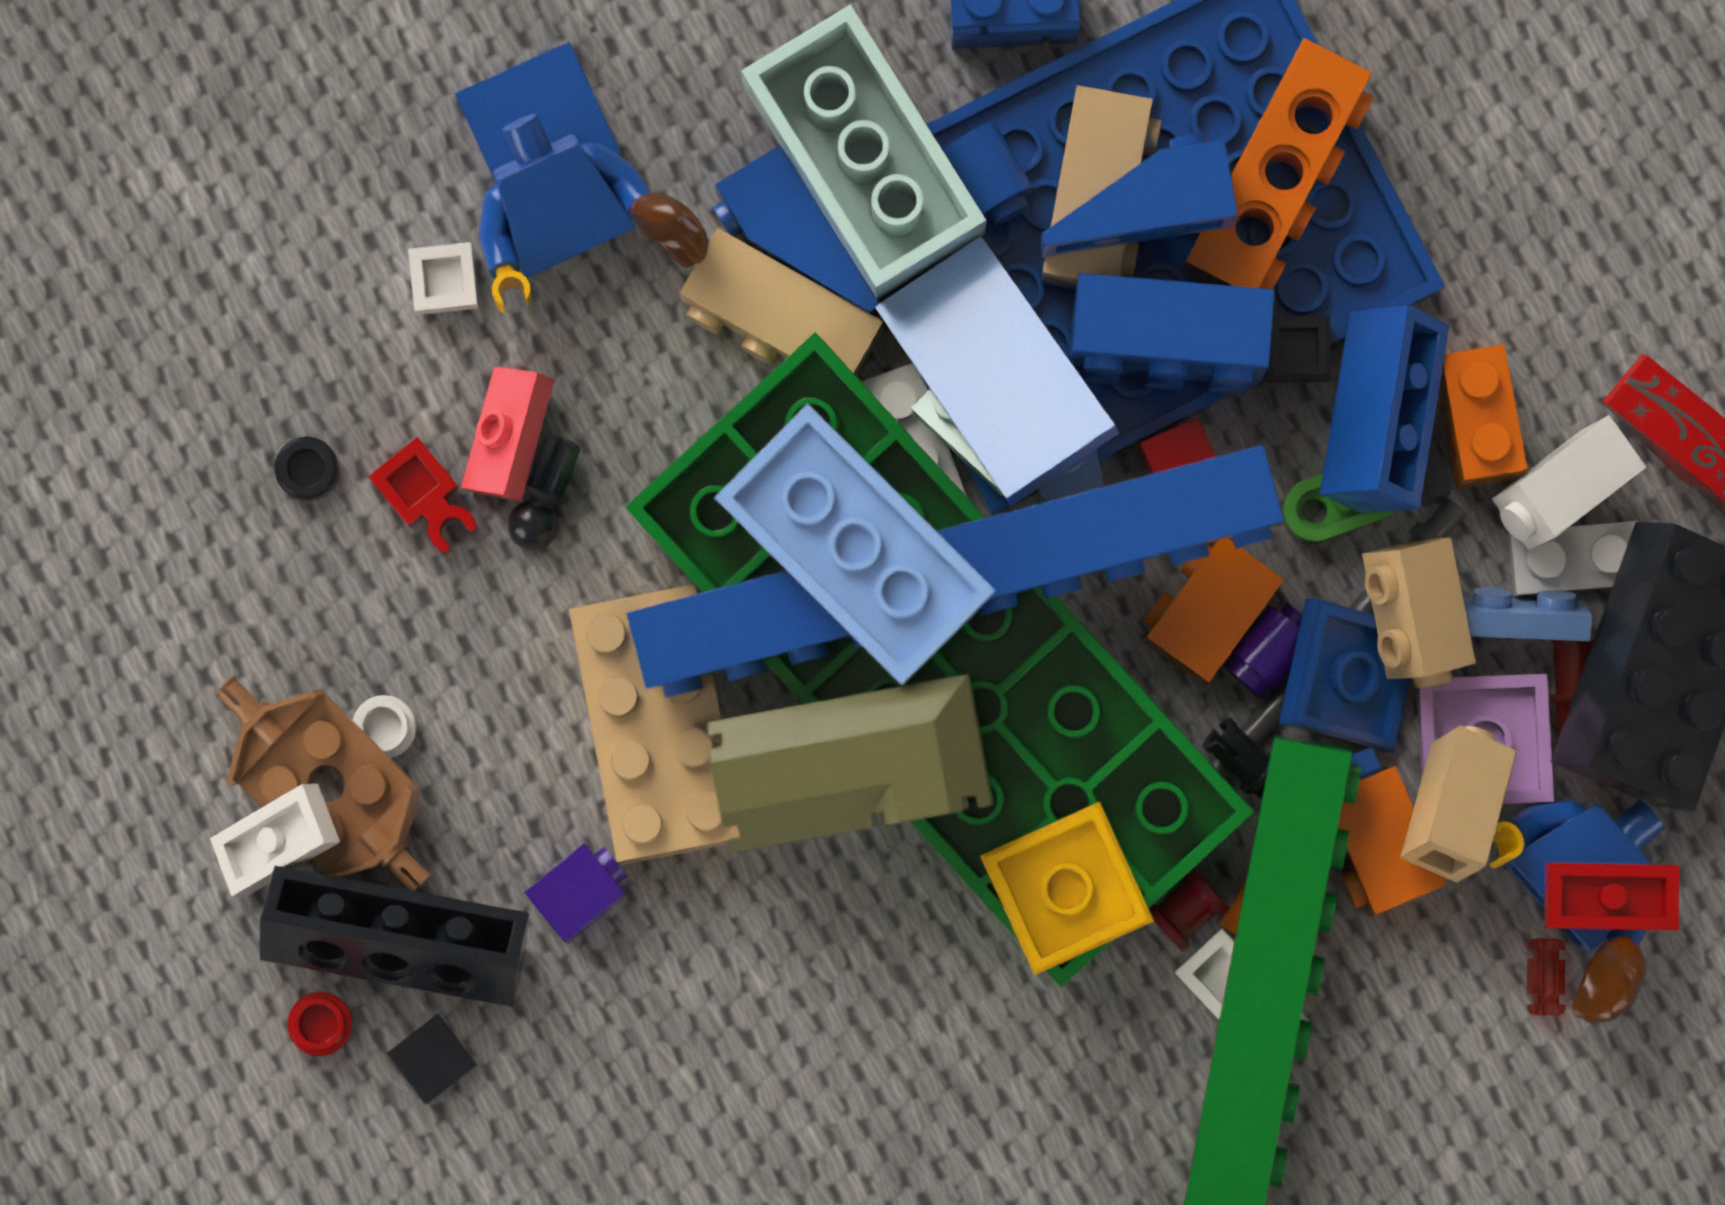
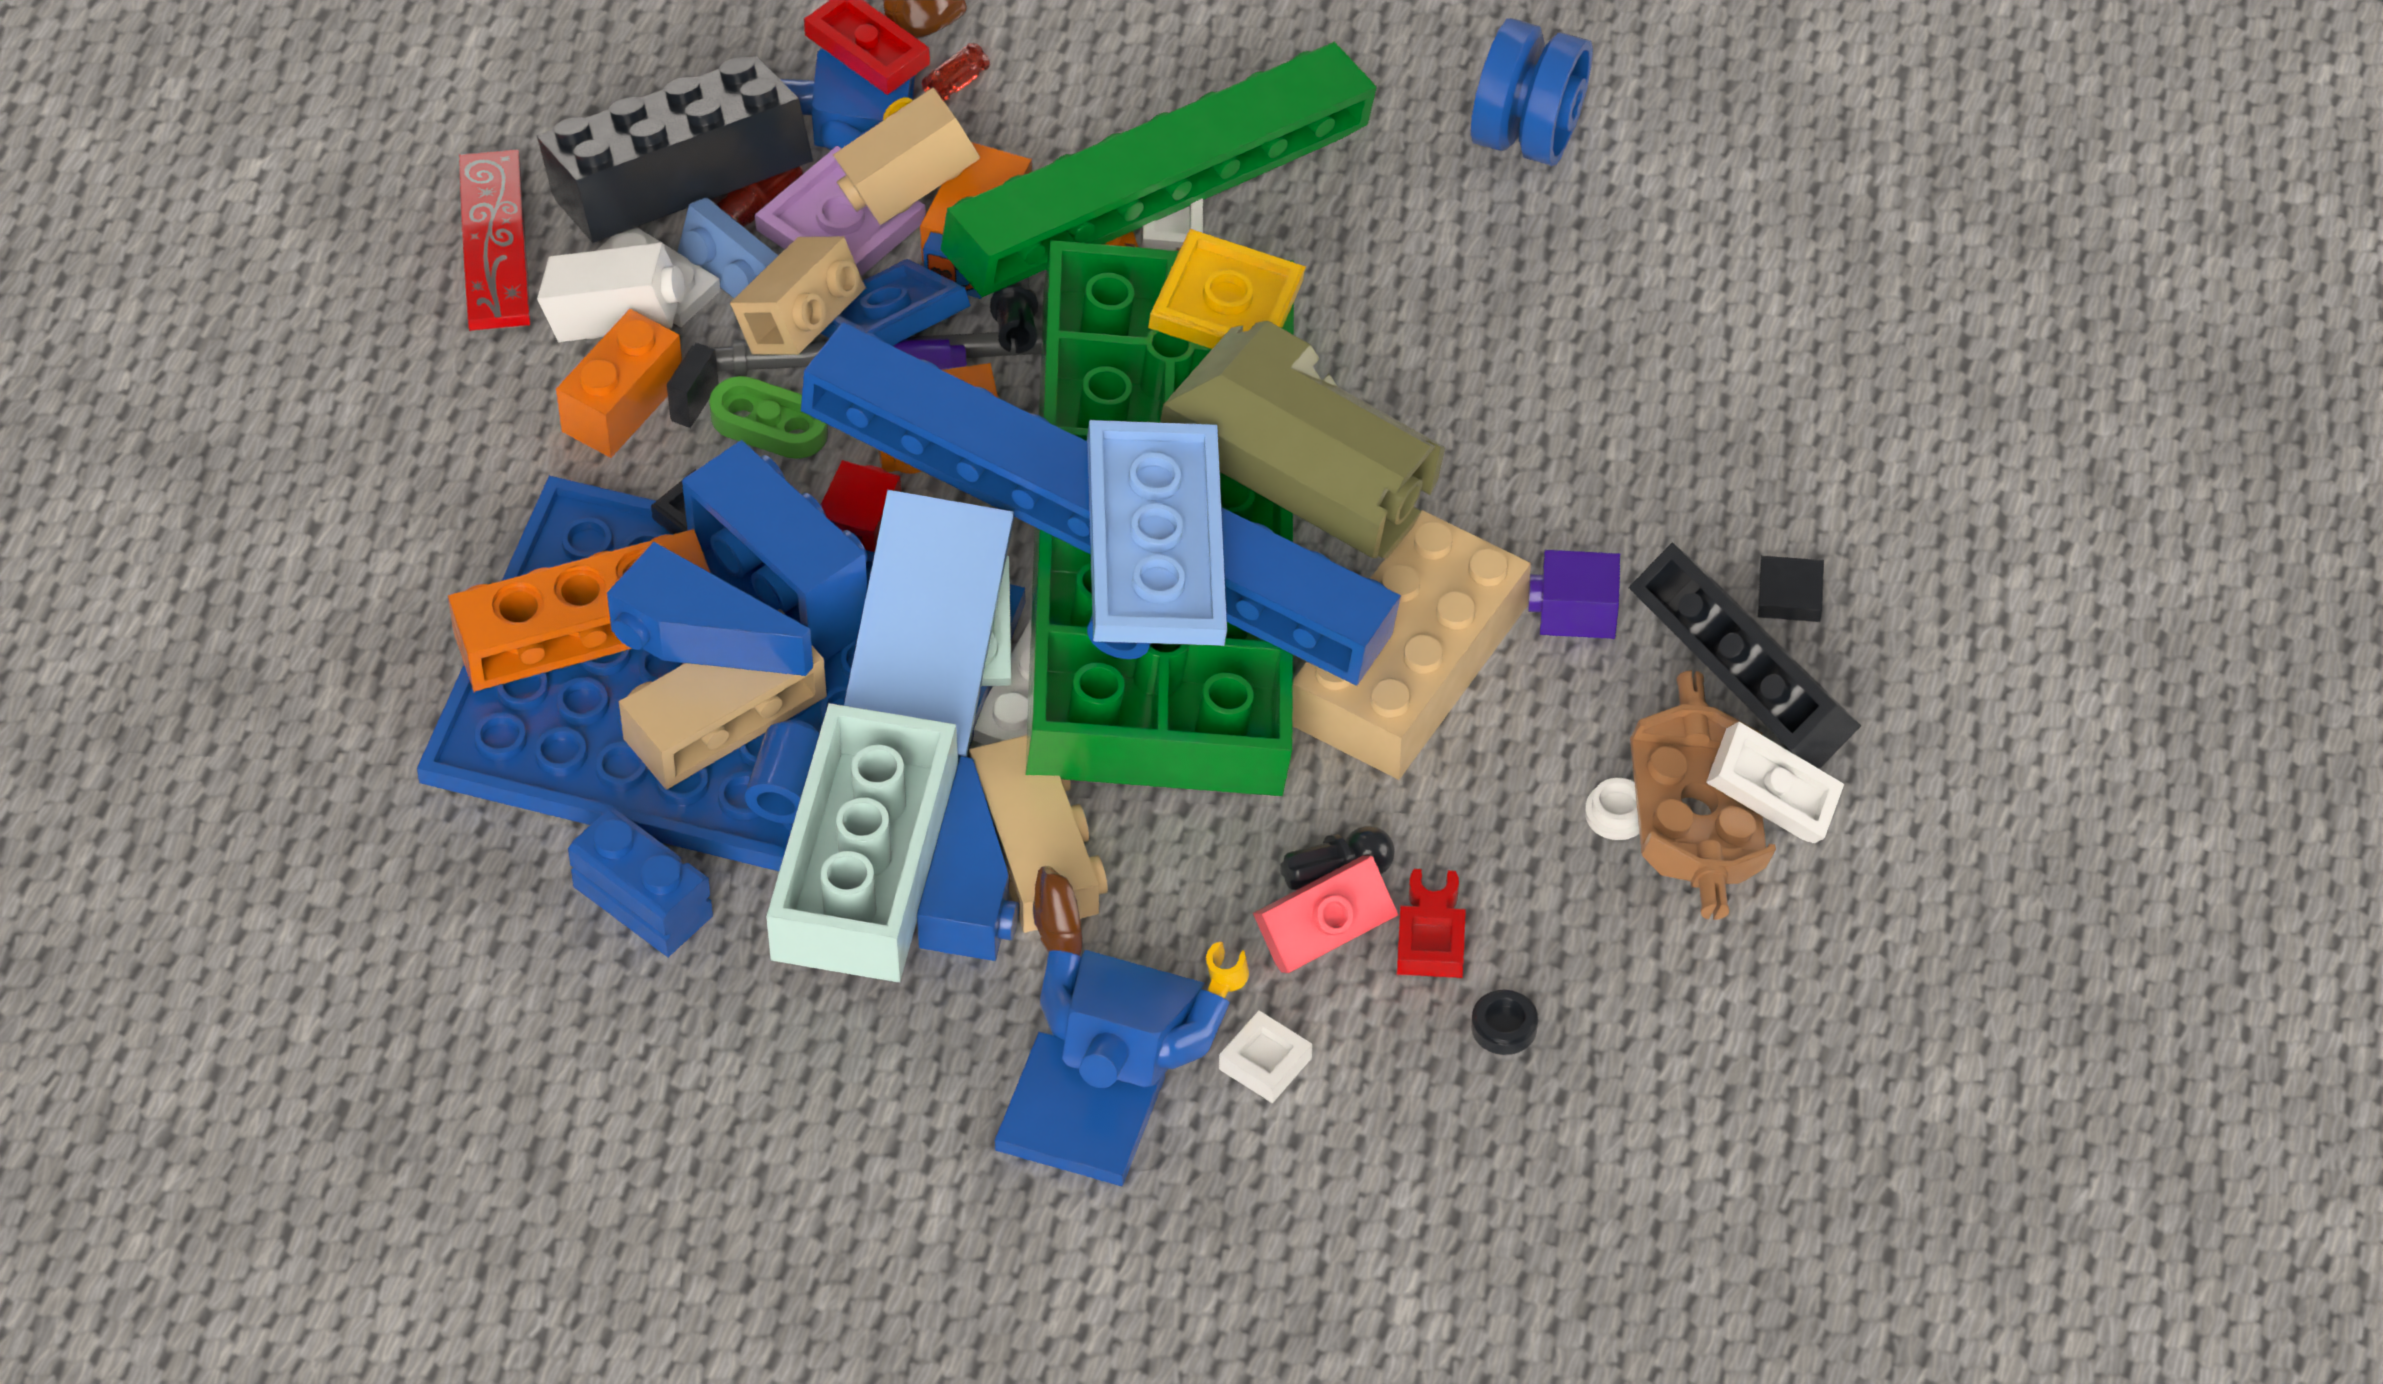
camera: 140 degrees left, 30 degrees down
(320, 1024) = (1854, 666): red plate -> none
(1384, 409) = (684, 413): blue brick -> none

